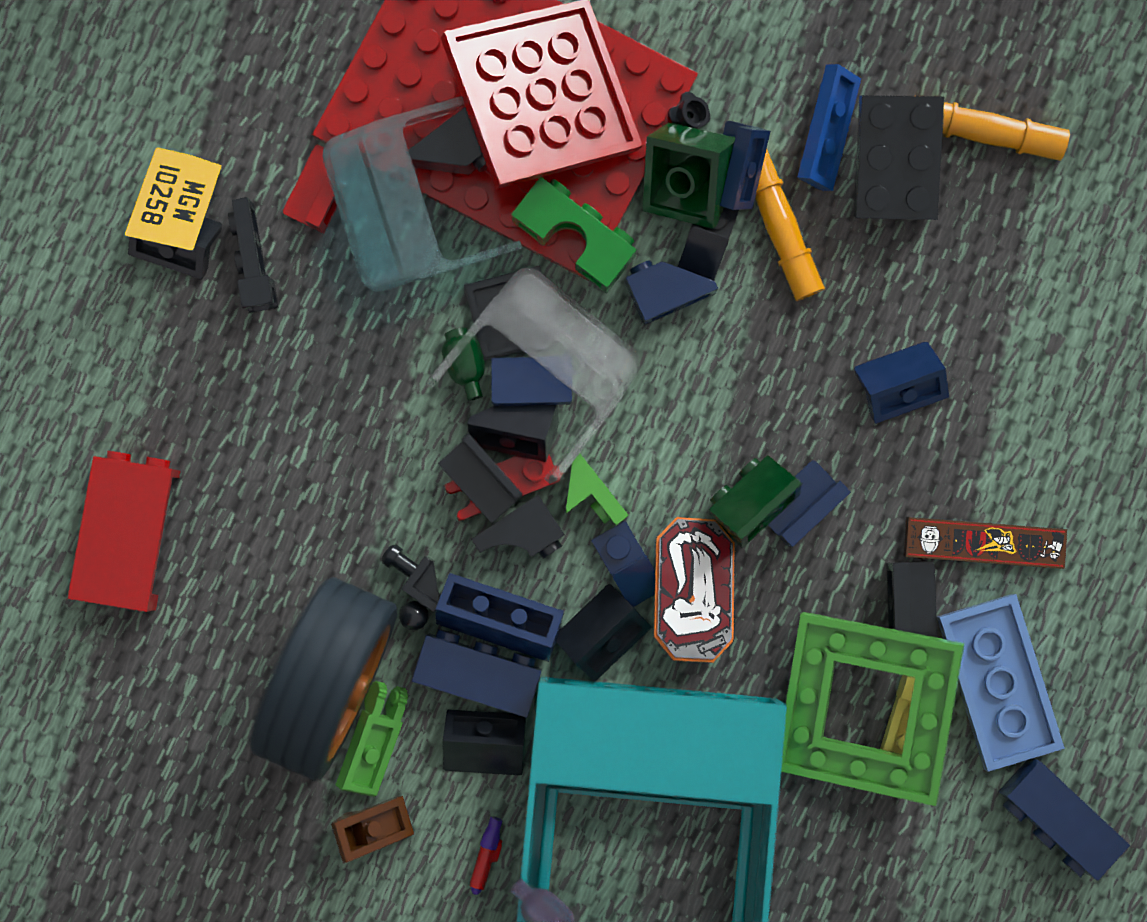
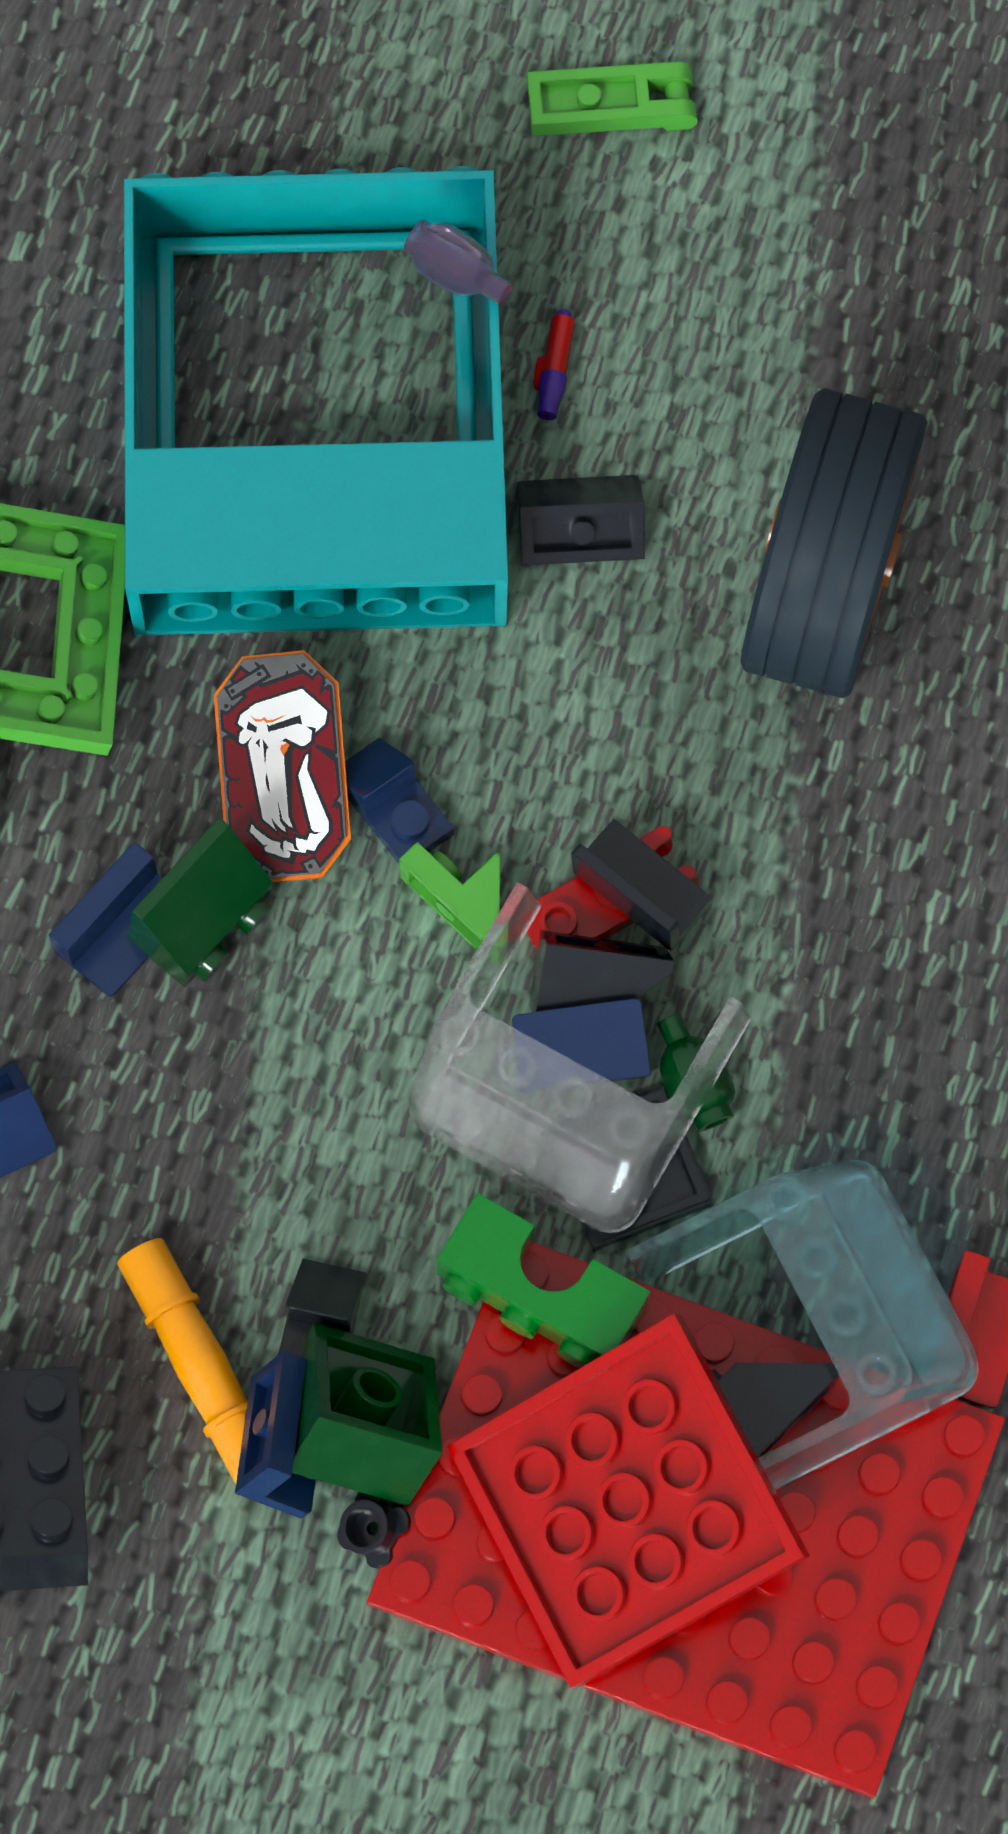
camera: 165 degrees right, 15 degrees down
(371, 828) = (732, 371): reddish brown slope -> none
(373, 740) = (749, 496): bright green hinge -> none
(420, 585) = (713, 721): black piece -> none
(477, 672) = (603, 610): dark blue brick -> none
(499, 617) = (582, 688): dark blue brick -> none
(526, 527) = (548, 824): black arch -> none
(602, 632) = (421, 693): black panel -> none
(665, 289) = (380, 1227): dark blue slope -> none
(829, 127) = (133, 1532): blue plate -> none

